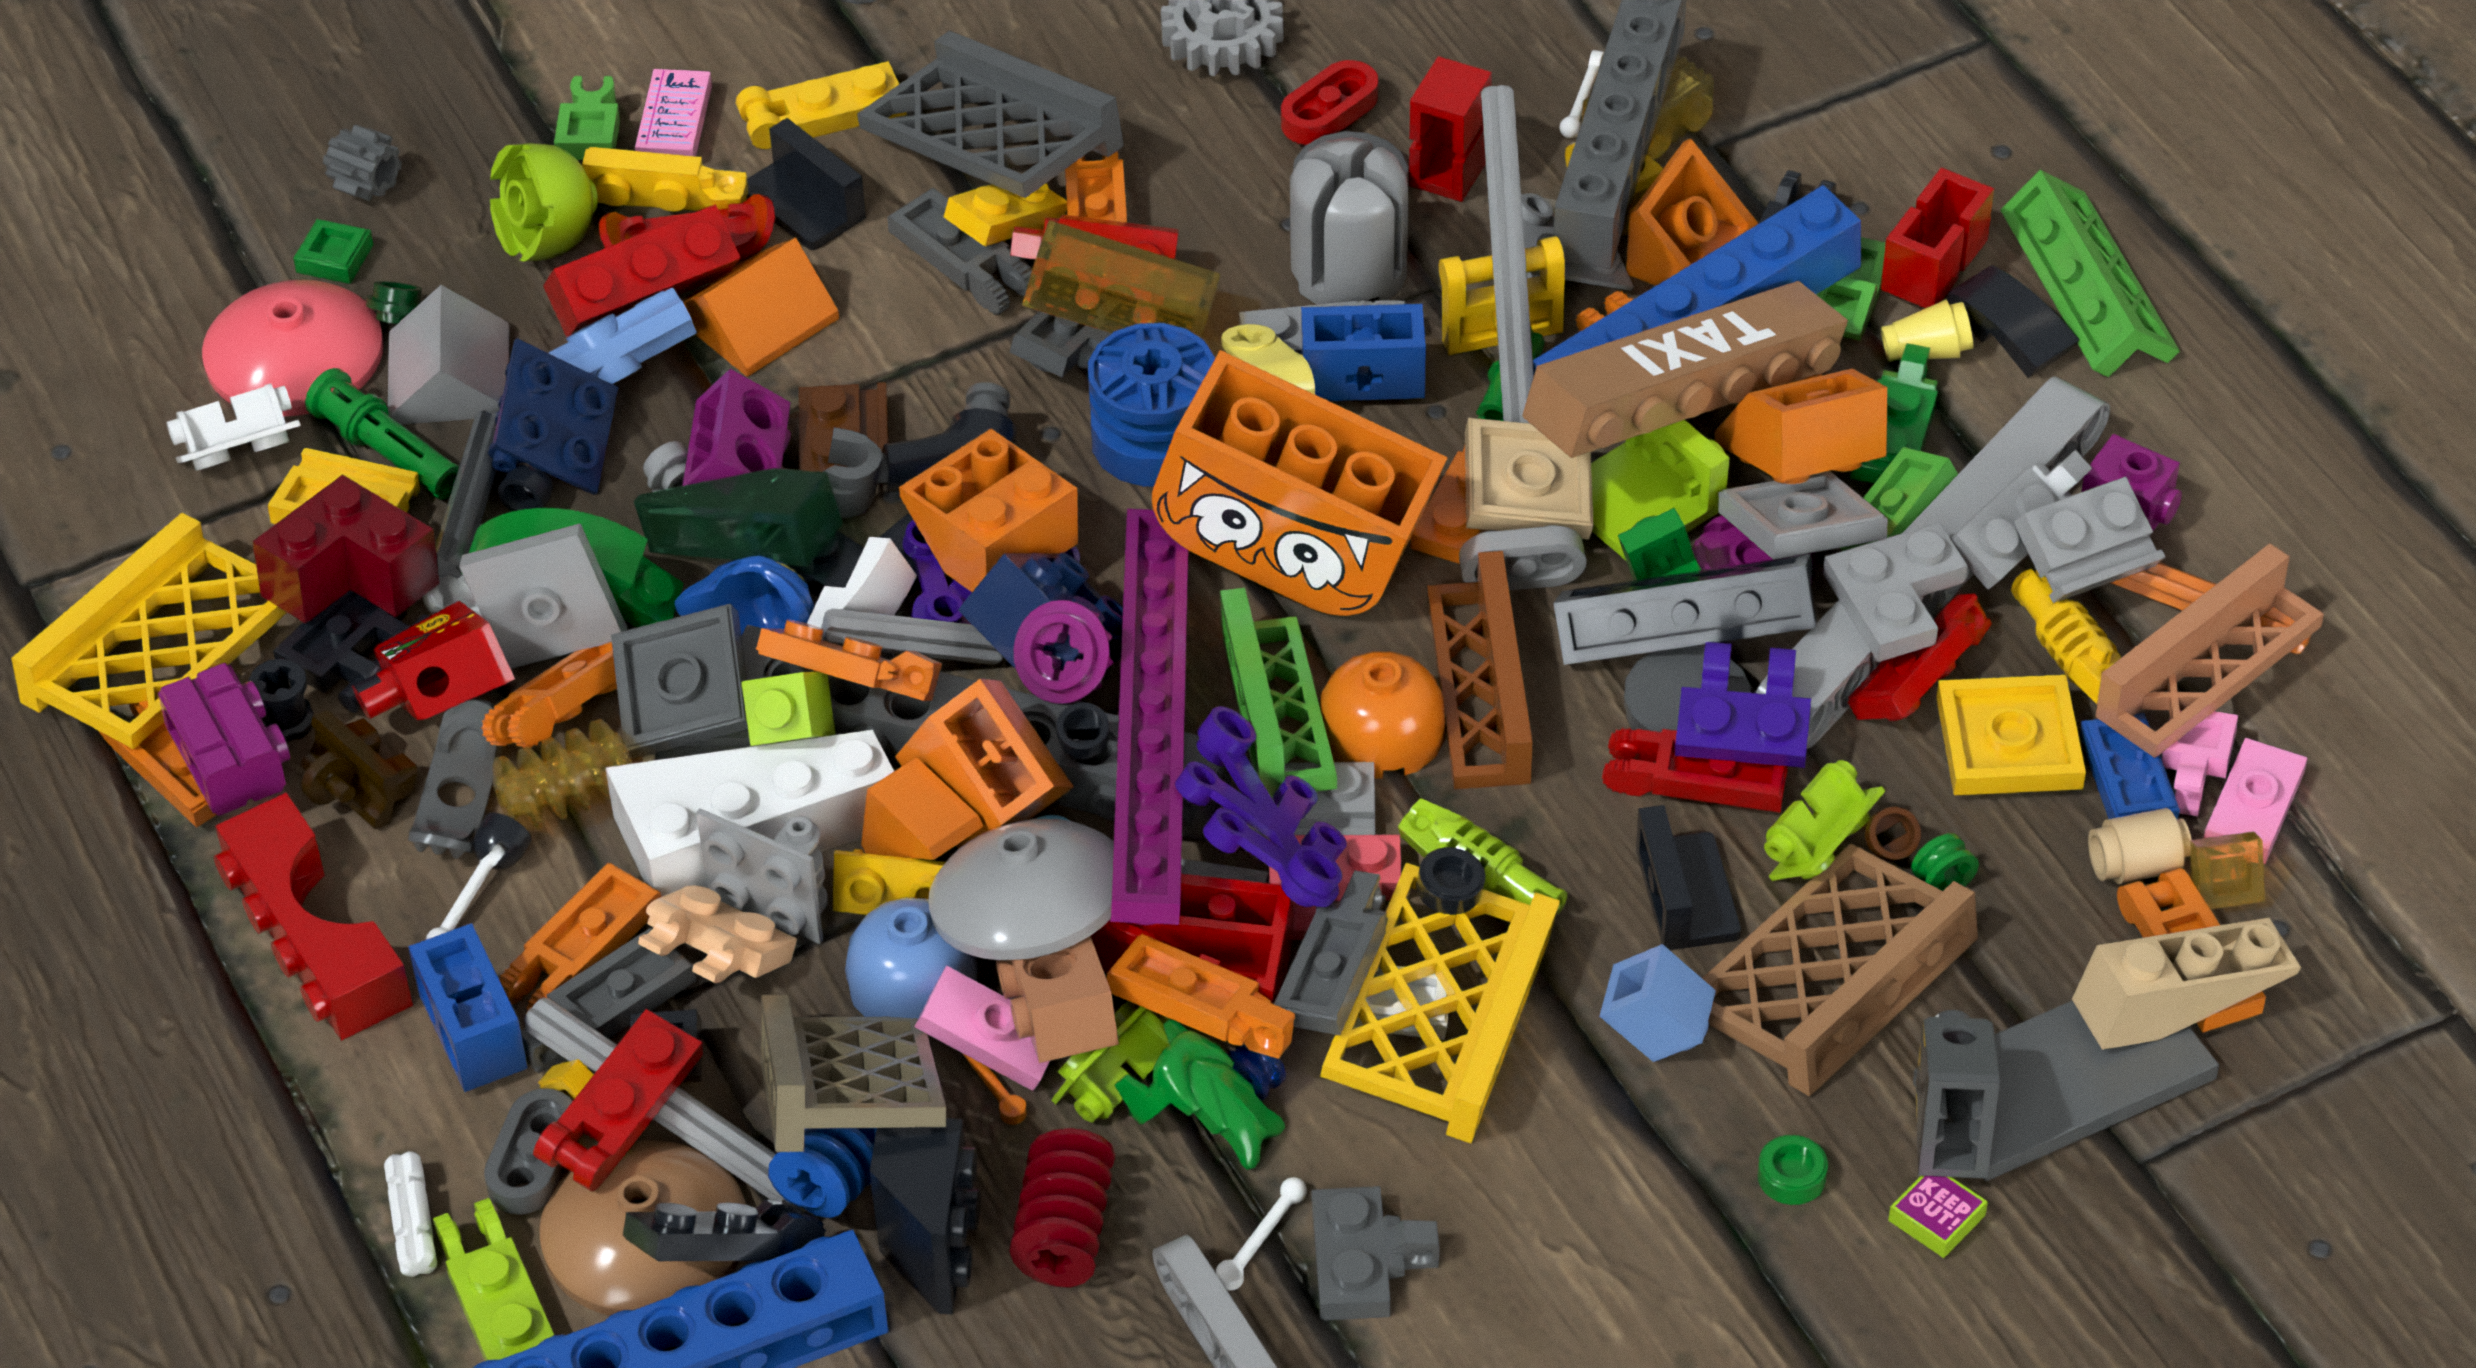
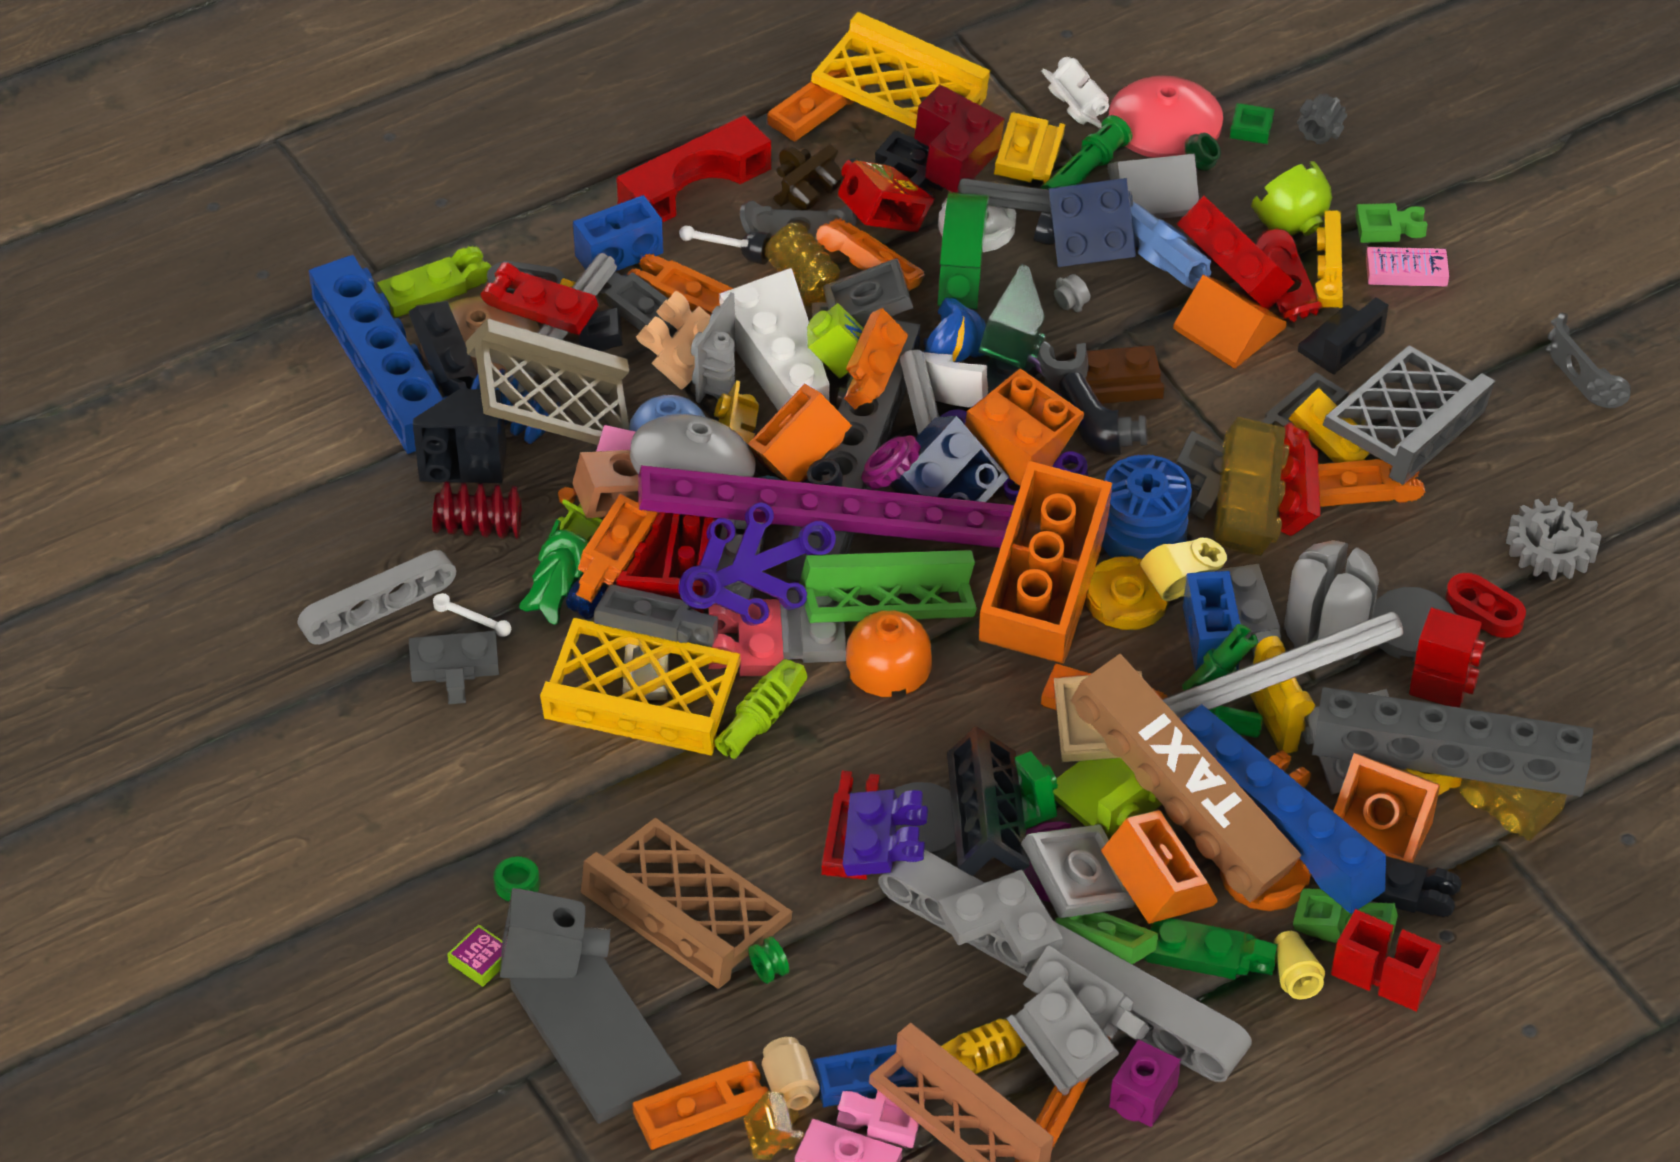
camera: 85 degrees right, 0 degrees up
(223, 738) = (807, 107): magenta brick -> none
(284, 704) = (858, 138): black bush -> none
(410, 1214) = (490, 240): white axle -> none
(543, 595) = (927, 226): light grey plate -> none
(736, 430) = (1082, 302): magenta brick -> none
(817, 104) = (1432, 333): yellow plate -> none
(915, 815) = (757, 407): orange slope -> none
(1449, 344) = (1223, 658): none -> green pin
(1450, 880) = (722, 674): black tile -> none
(1501, 667) = (930, 709): dark orange fence -> none
(1531, 556) = (1033, 712): light grey plate -> none
(1658, 1003) = (631, 792): medium blue brick -> none
(1684, 884) = (752, 815): black panel -> none
(1807, 840) = (784, 882): lime hinge -> none
(1899, 682) = (969, 959): red hinge -> none
(1900, 846) = (787, 936): reddish brown hinge -> none
(2010, 735) = (890, 996): yellow plate -> none
(2015, 317) = (1323, 1018): black slope -> none
(2086, 274) = (1378, 1057): bright green fence -> none
(2172, 980) = (649, 1074): tan slope -> none

